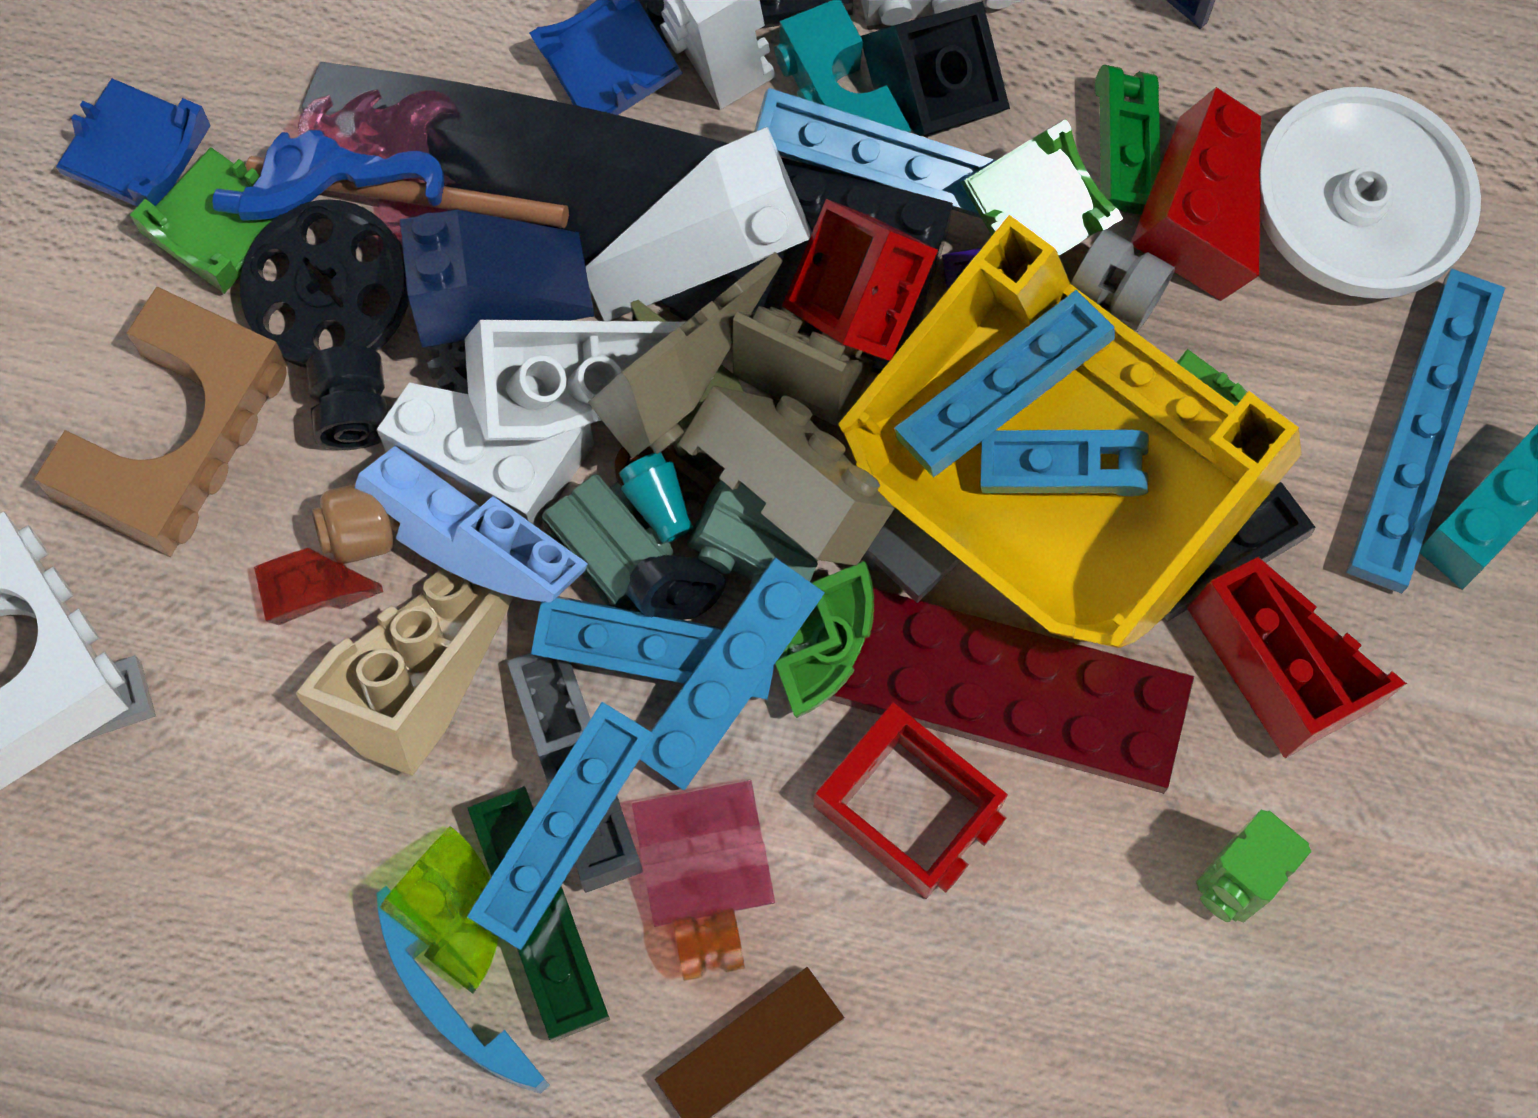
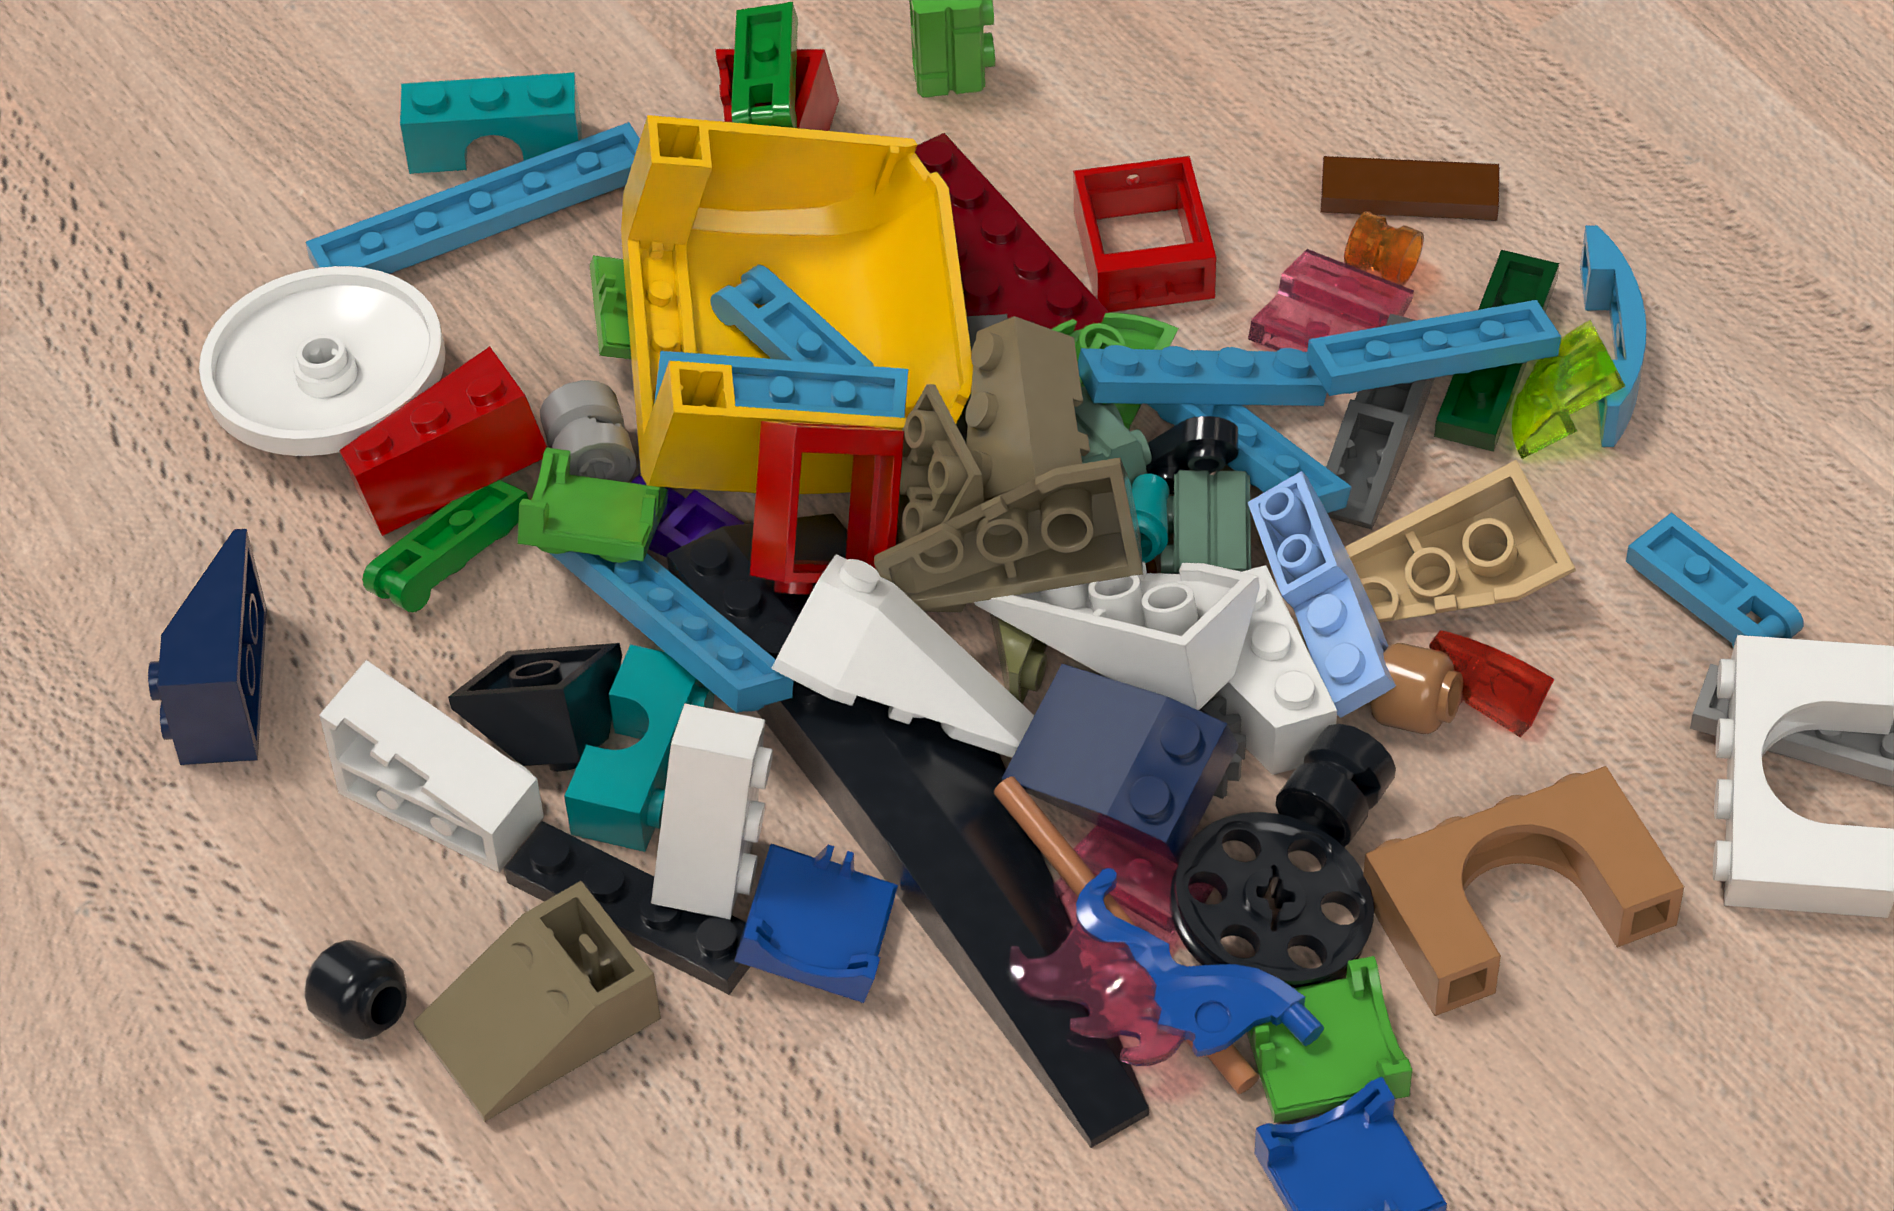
camera: 135 degrees left, 20 degrees down
(203, 799) = (1711, 582): none -> dark azure plate
(1326, 659) = (765, 65): none -> green plate

